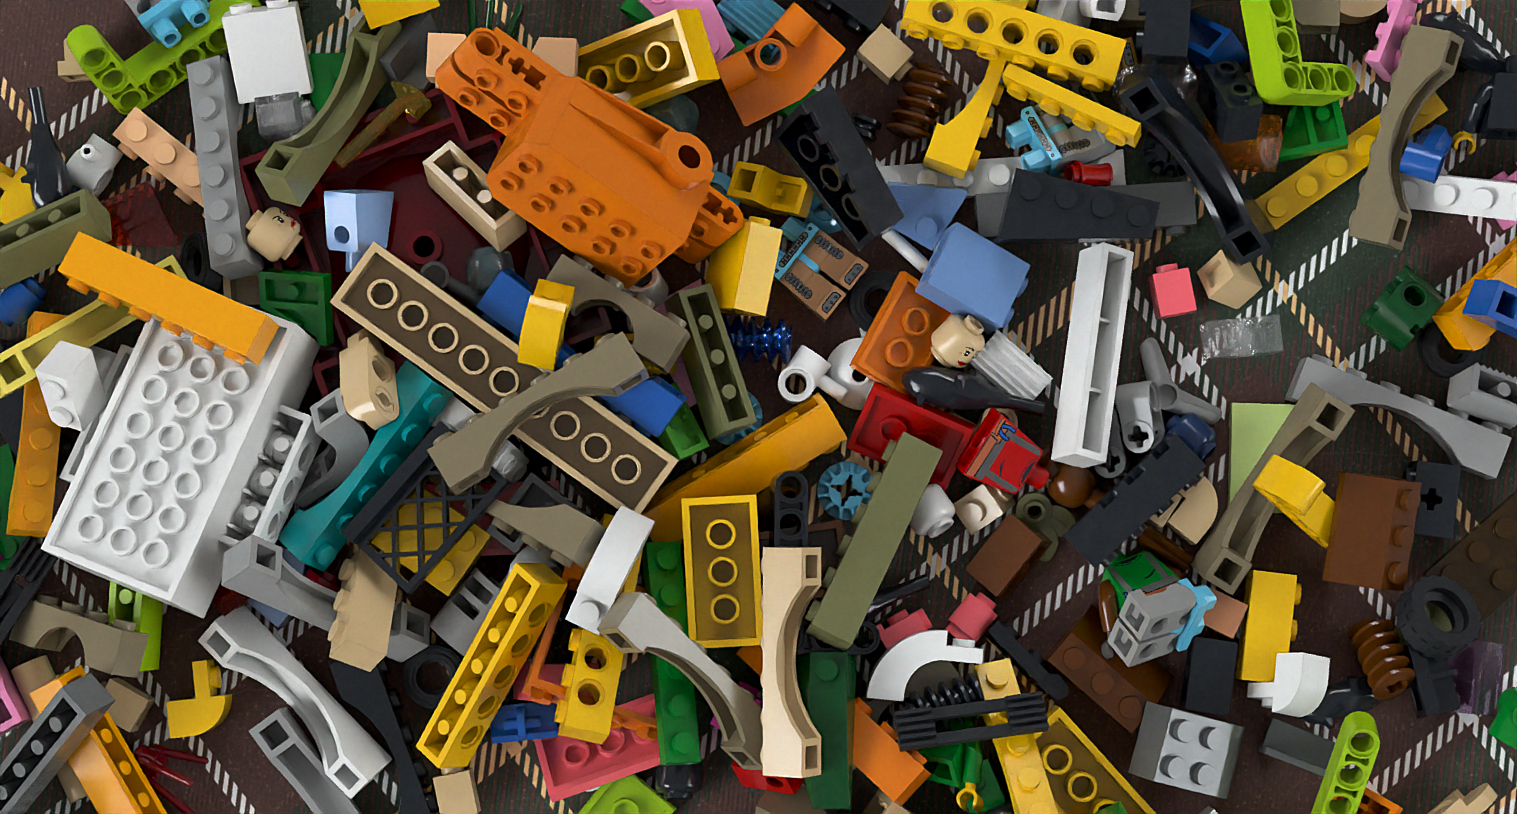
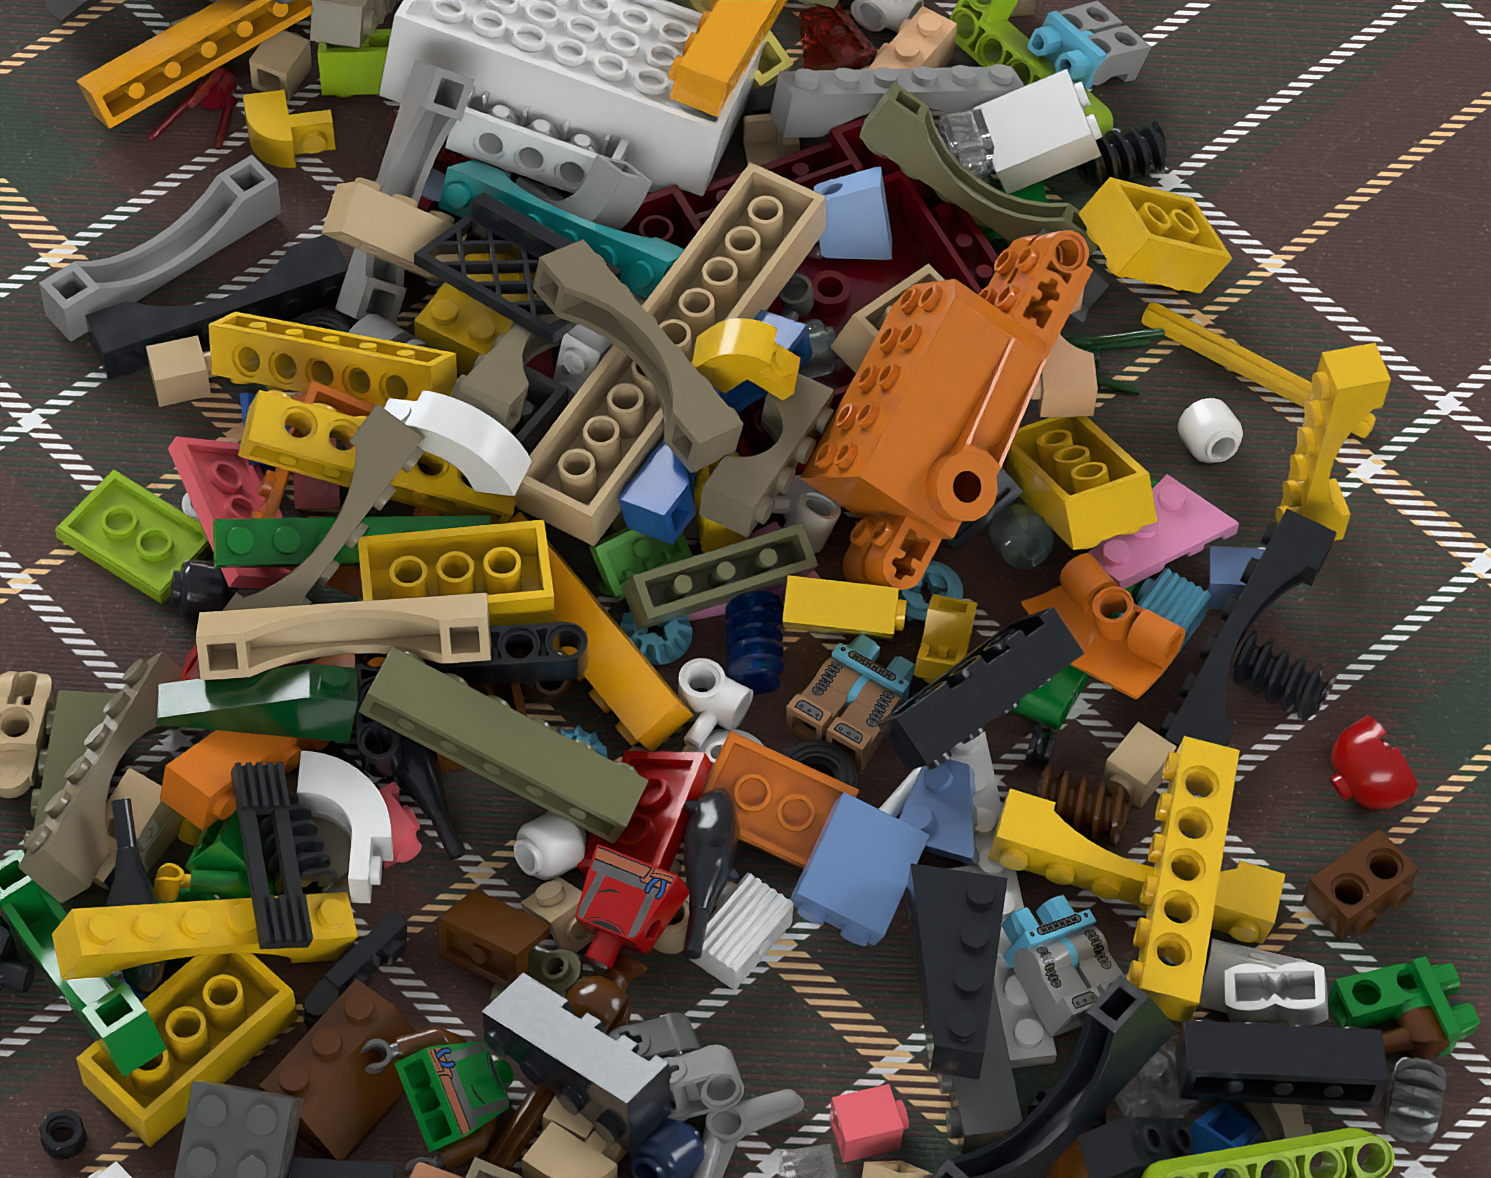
camera: 85 degrees right, 30 degrees down
(247, 646) = (226, 263): white arch -> none
(273, 234) = (825, 131): tan head -> none
(300, 299) = (764, 149): green wing -> none
(368, 381) = (655, 199): tan piece -> none
(408, 100) = (960, 226): clear yellow piece -> none
(957, 340) = (773, 852): tan head -> none
(972, 617) = (411, 901): coral brick -> none
(1082, 111) = (1092, 962): yellow plate -> none
(1089, 173) = (1013, 993): red pin -> none
(1092, 356) = (770, 1007): white brick -> none
(1160, 621) = (412, 1093): light grey hips -> none

